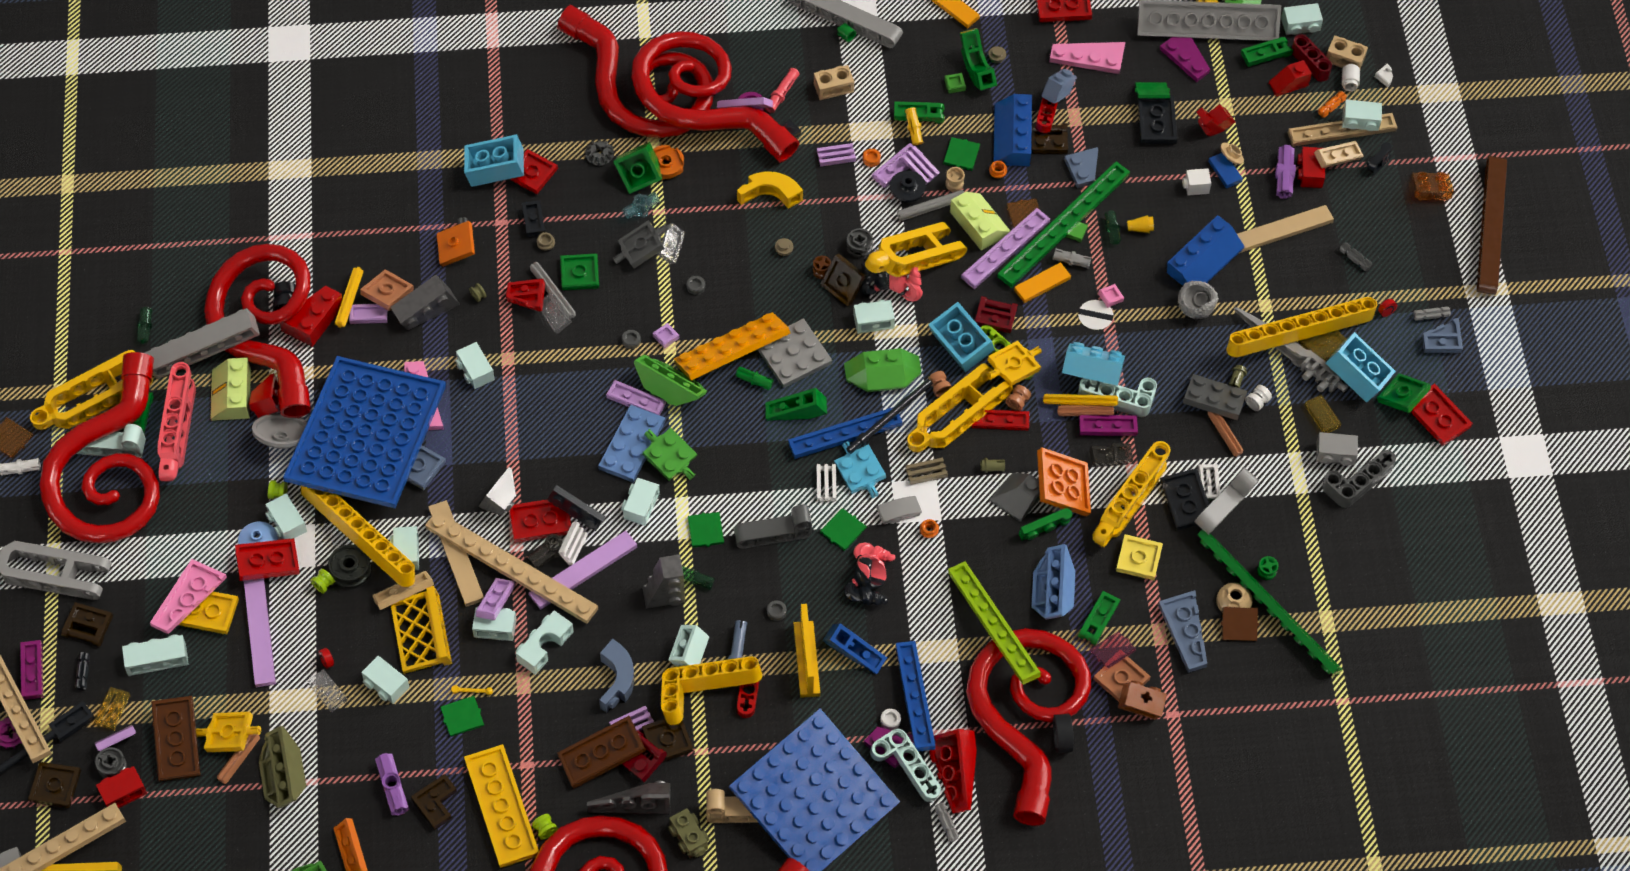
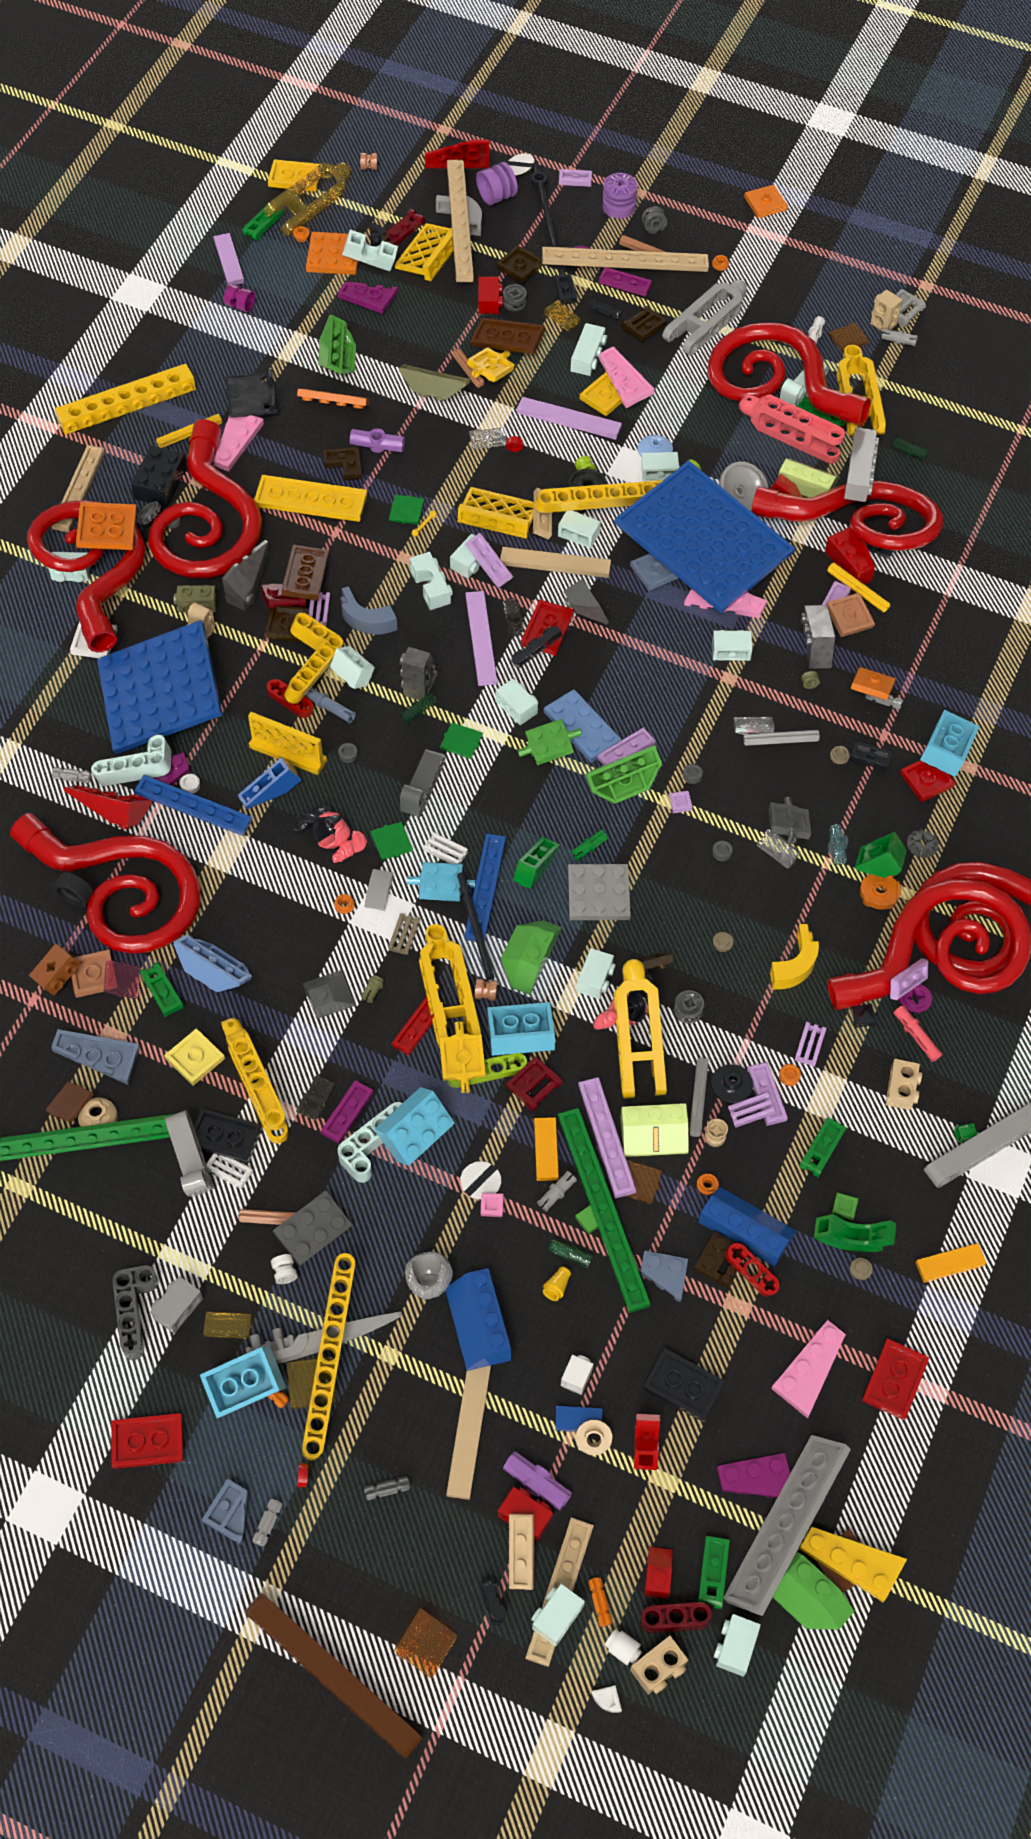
camera: 120 degrees right, 0 degrees up
(114, 738) = (533, 305): lavender tile -> none
(266, 559) = (627, 439): red plate -> none
(385, 680) = (469, 471): light aqua brick -> none
(512, 567) = (513, 587): tan plate -> none
(527, 293) = (785, 712): red wing -> none
(544, 826) = (272, 515): lime wheel -> none
(573, 544) = (506, 638): white tile -> none
(579, 271) = (791, 768): green tile -> none
(731, 346) = (632, 841): light orange plate -> none
(819, 263) = (683, 955): reddish brown wheel -> none
(914, 126) = (803, 1127): yellow pin -> none
(961, 153) = (749, 1163): green piece -> none
(994, 623) = (209, 890): lime plate -> none
(1019, 395) = (427, 1048): nougat wheel -> none
(1045, 524) = (281, 996): green plate -> none
(1059, 86) = (776, 1296): sand blue brick -> none
(1064, 482) = (307, 1028): orange plate -> none
(1070, 399) = (386, 1098): yellow axle -> none
(1077, 410) = (374, 1099): nougat axle -> none
(1152, 90) = (725, 1402): green piece -> none
(1239, 373) = (322, 1267): olive pin -> none
(1270, 564) = (102, 1156): green wheel -> none
(1404, 393) = (192, 1418): green tile -> none

